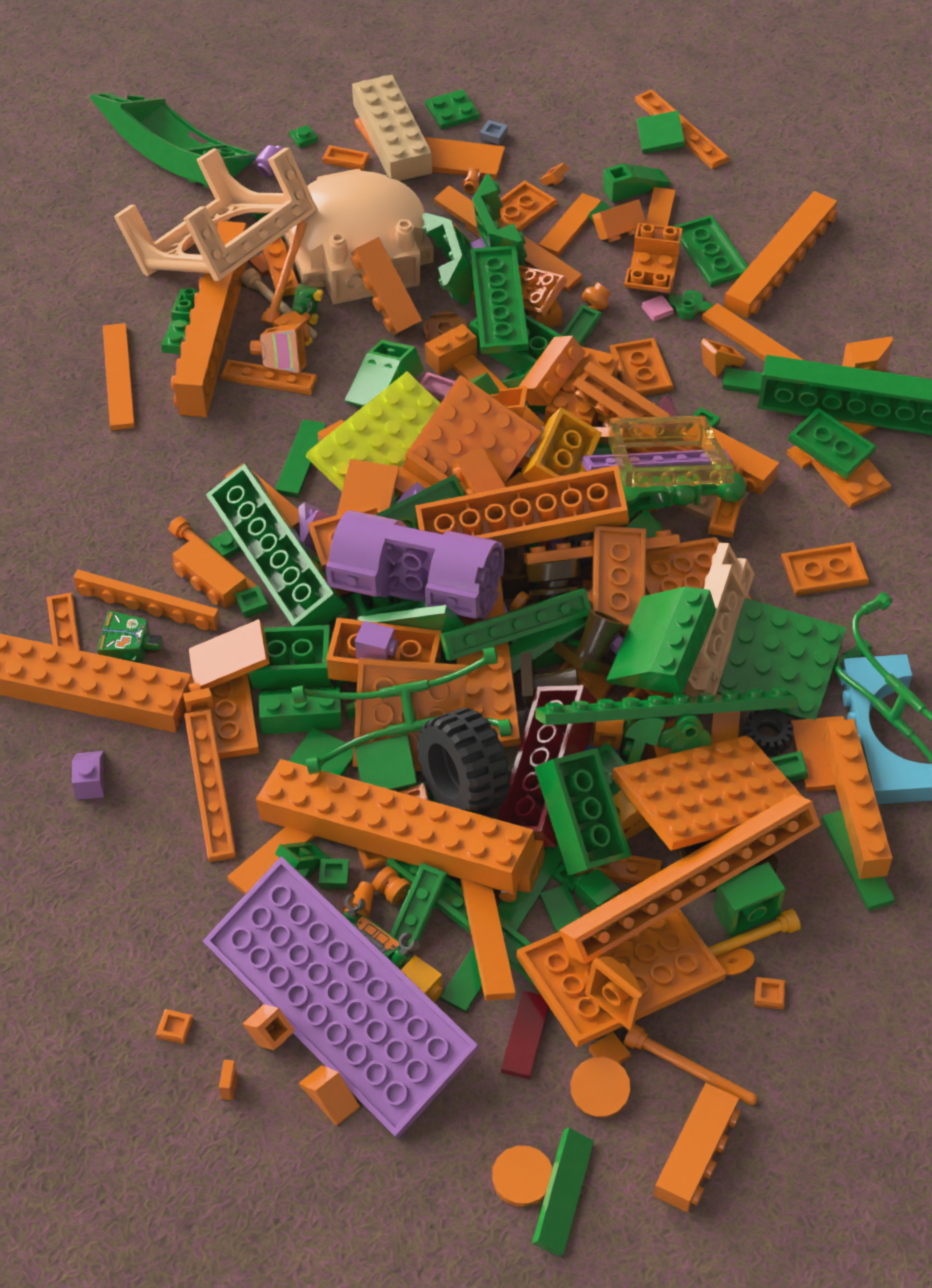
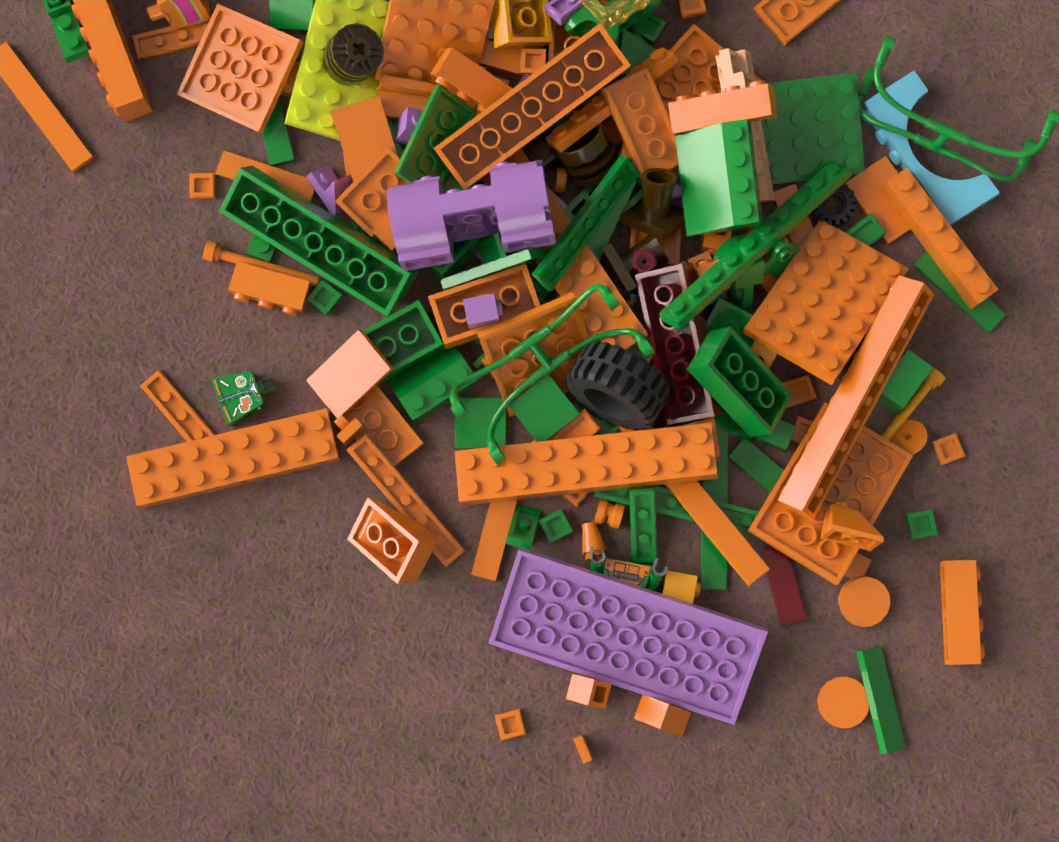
camera: 30 degrees left, 30 degrees up
(88, 775) = (294, 540): medium lavender slope -> none
(147, 600) = (244, 345): orange plate -> none
(174, 810) = (392, 541): none -> orange slope
(207, 480) = (202, 186): none -> orange tile
(297, 408) = (240, 68): none -> orange plate
(395, 425) = (343, 64): none -> dark brown wheel
(553, 672) = (637, 262): none -> dark red plate
(639, 1039) = (913, 545): orange piece -> none
(677, 525) = (650, 27): none -> green plate
(701, 1045) = (921, 524): none -> green plate
(727, 584) = (713, 108): none -> brick

